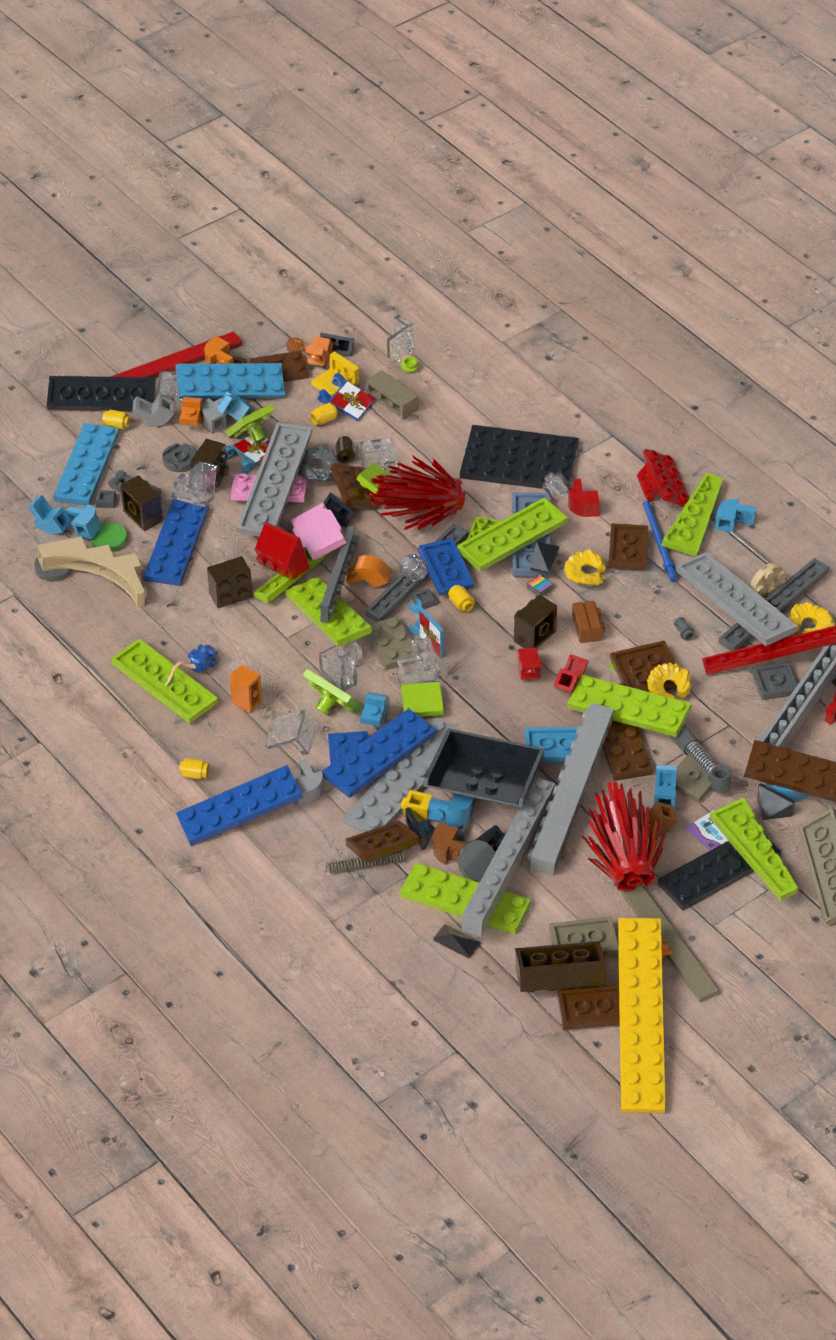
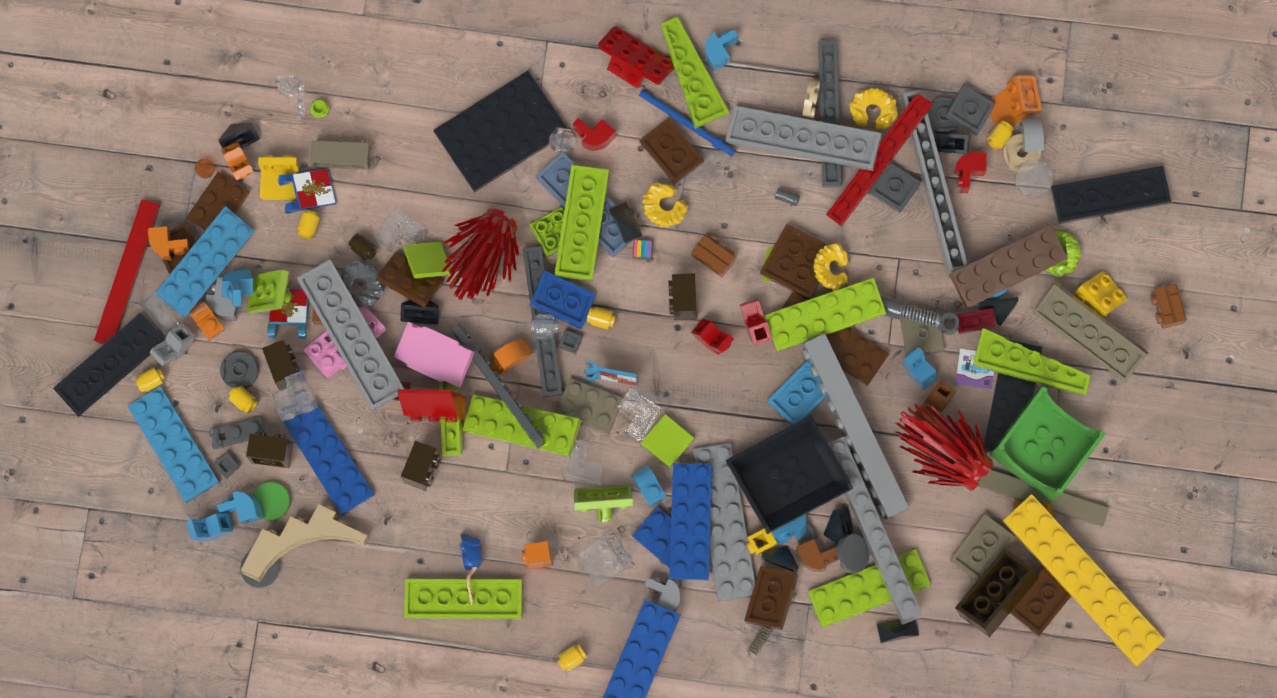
camera: 40 degrees left, 30 degrees up
(161, 470) = (242, 399): none -> yellow brick
(708, 898) = (1046, 446): none -> bright green container
(752, 795) = (977, 321): none -> dark red plate

